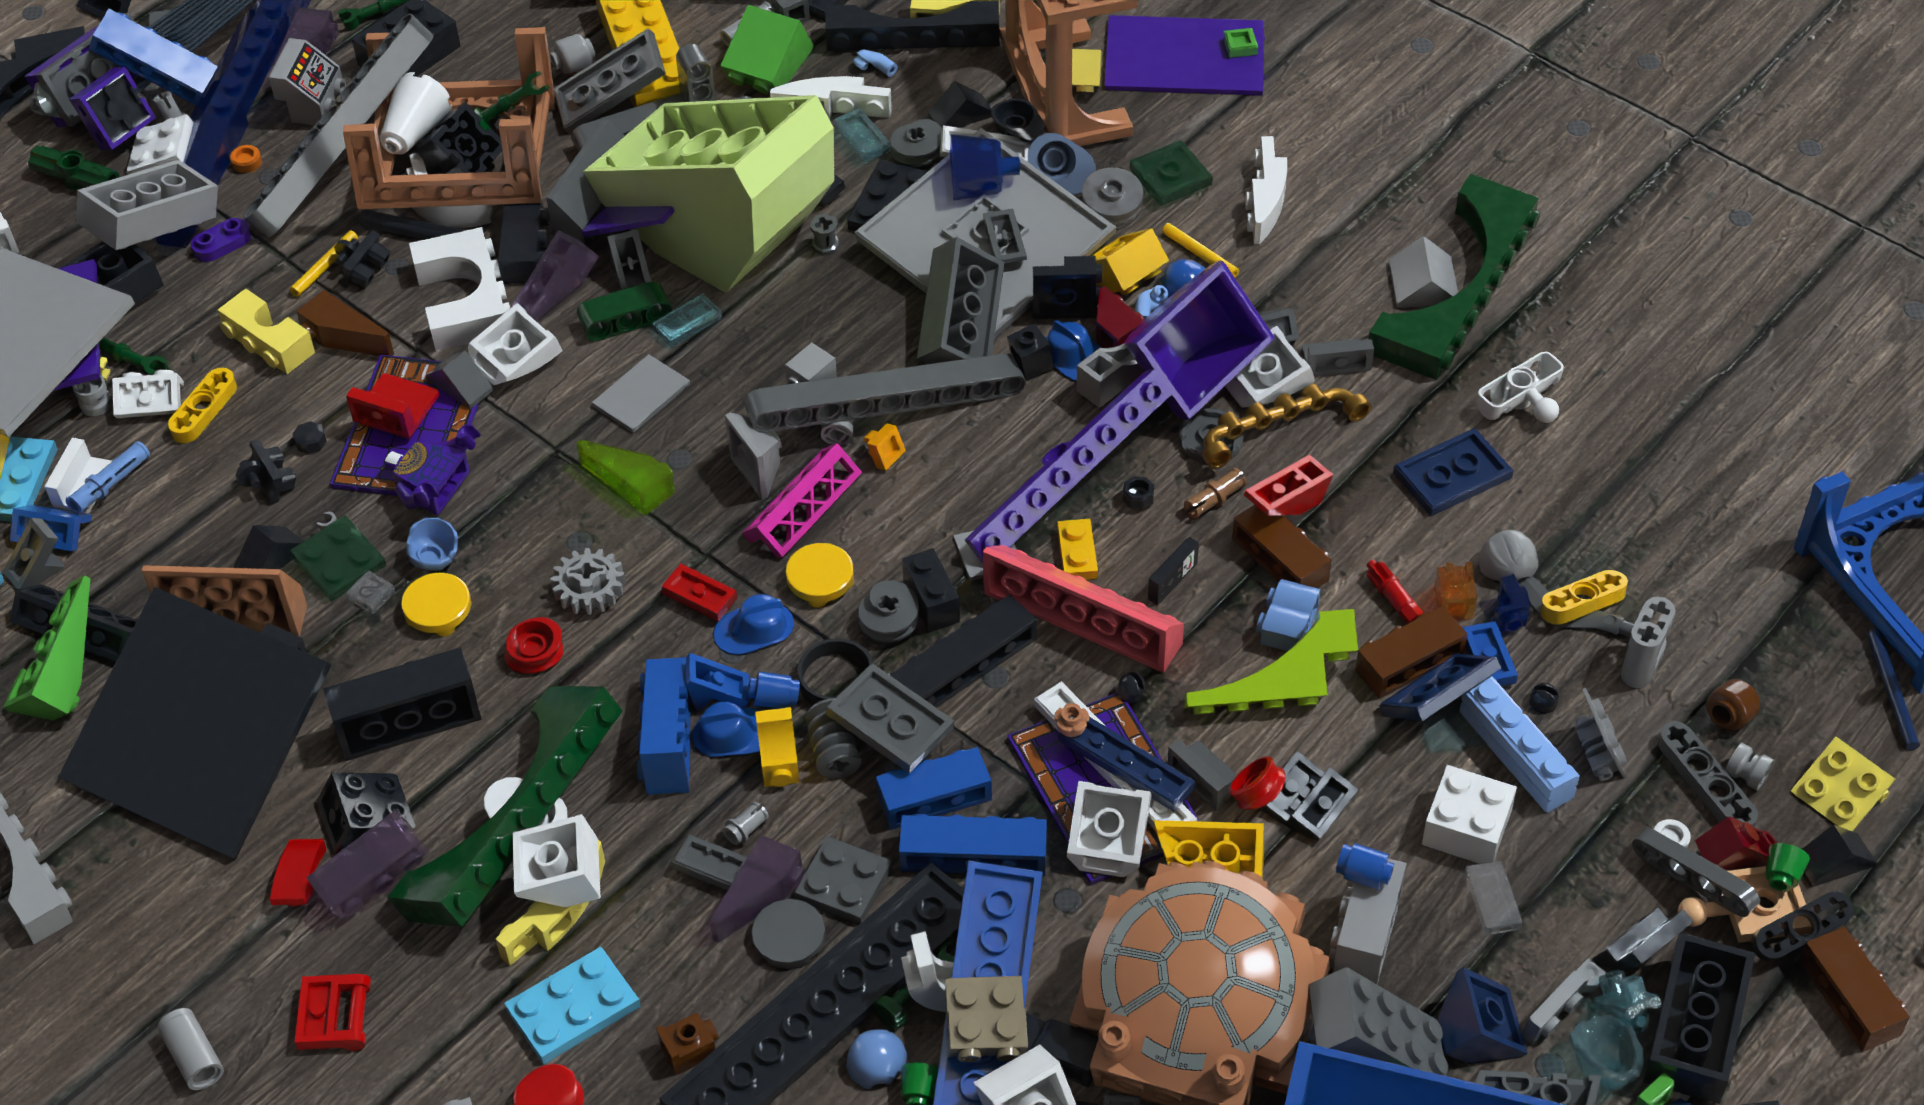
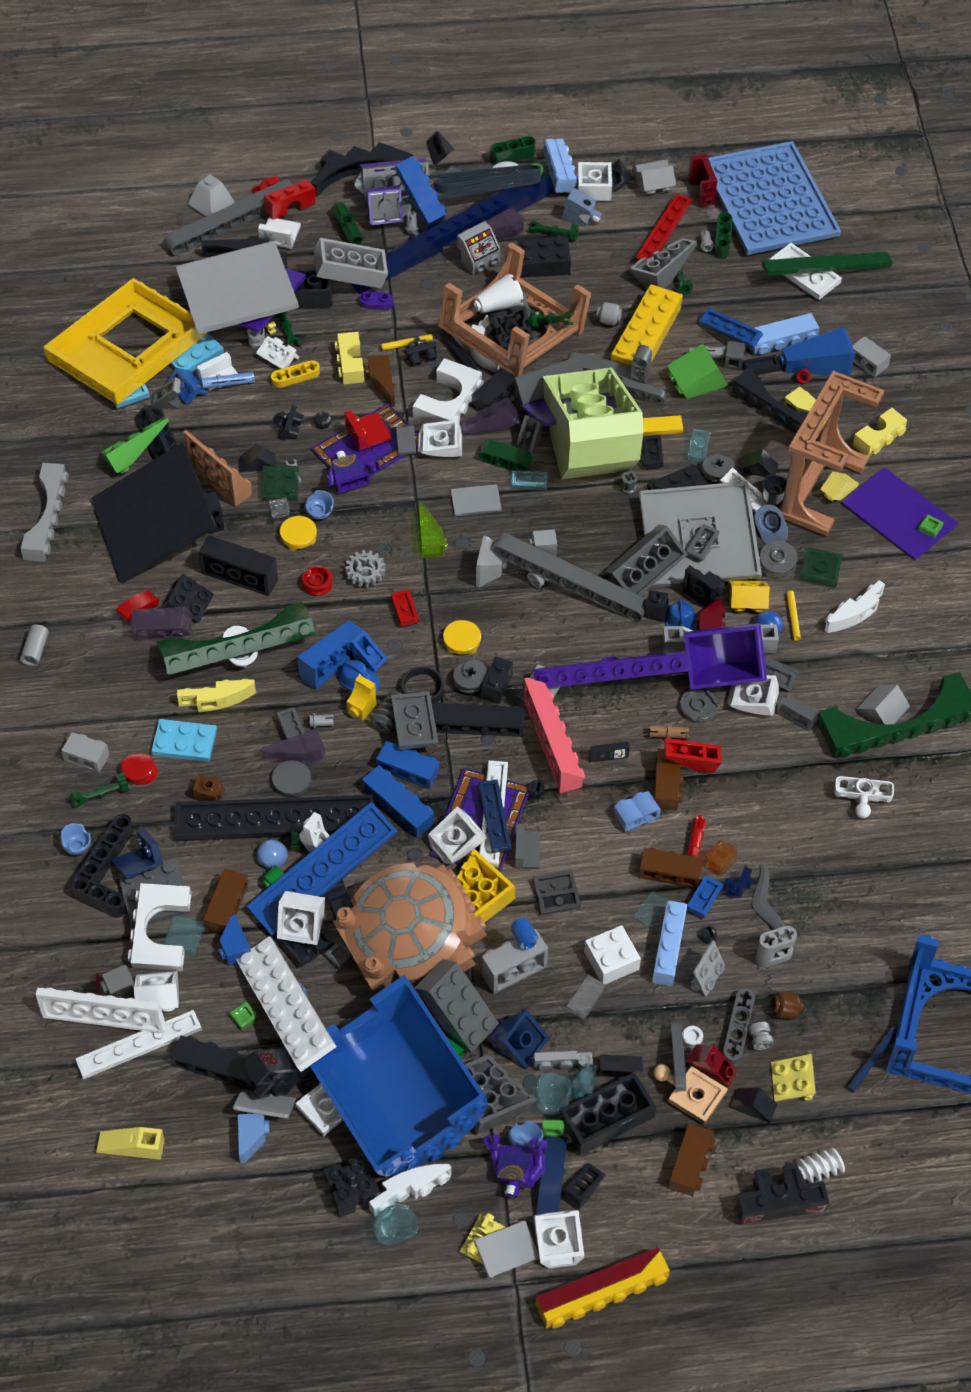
camera: 40 degrees right, 5 degrees up
(160, 143) = (391, 237): white plate -> none
(245, 158) = (423, 267): orange tile -> none
(320, 1012) = (93, 667): red plate -> none
(326, 138) = (465, 279): beam -> none
(557, 863) = (223, 677): white slope -> none
(609, 80) = (607, 338): dark grey tile -> none
(754, 625) = (413, 640): blue piece -> none
(773, 690) = (388, 673): blue brick -> none
(793, 493) = (489, 593): dark pink fence -> none
(841, 95) = (702, 414): white slope -> none
(843, 880) = (335, 774): dark grey plate -> none
(876, 59) = (748, 413): light blue arm -> none
(884, 446) = (548, 601): light orange tile -> none
(978, 166) = (722, 499): clear blue torso -> none
(985, 1018) = (316, 870): dark tan plate -> none
(1068, 726) = (487, 784): nougat plate -> none
(1077, 548) = (581, 711): yellow plate -> none
(1138, 492) = (635, 706): black tile -> none
(1150, 300) = (740, 620): light blue arm -> none
(1218, 454) = (685, 714): pearl gold bar -> none
(1257, 784) = (536, 869): red piece -> none
(1293, 676) = (605, 836): lime arch -> none
(1439, 686) = (662, 891): dark blue tile -> none
(1453, 471) = (789, 805): dark blue tile -> none
(1508, 554) = (765, 862): light grey hair -> none
(1564, 606) = (765, 897): yellow beam -> none
(1785, 866) = (716, 1086): green hat -> none
(1819, 905) = (682, 1106): black beam -> none

